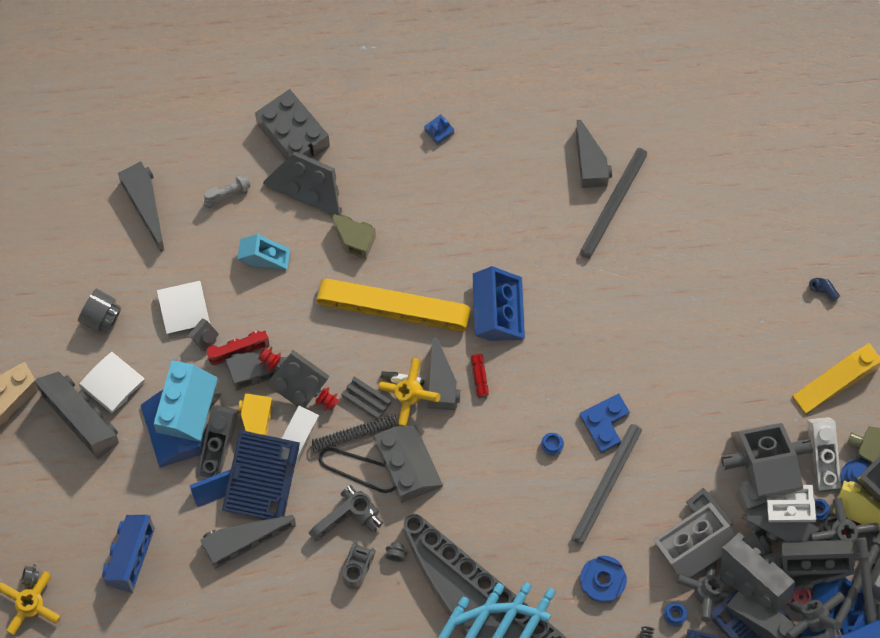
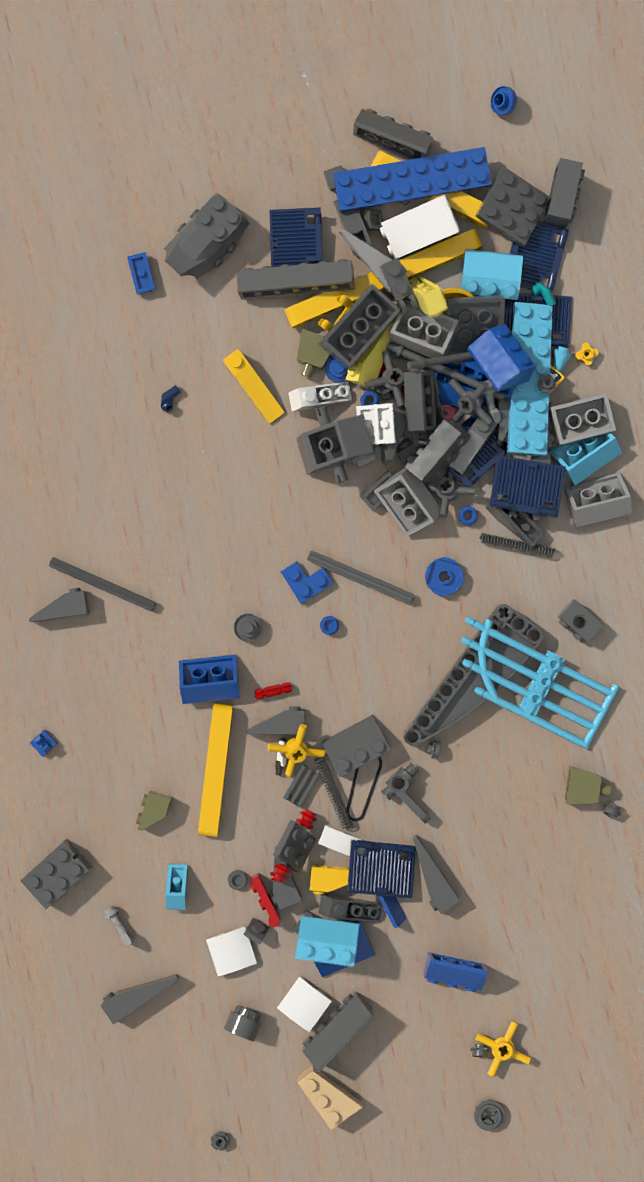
camera: 90 degrees left, 20 degrees up
(264, 320) = (237, 880): none -> dark grey tile
(307, 181) = (107, 855): dark grey wing -> none
(358, 561) = (447, 780): dark grey piece -> none
(555, 352) = (247, 627): none -> dark grey plate

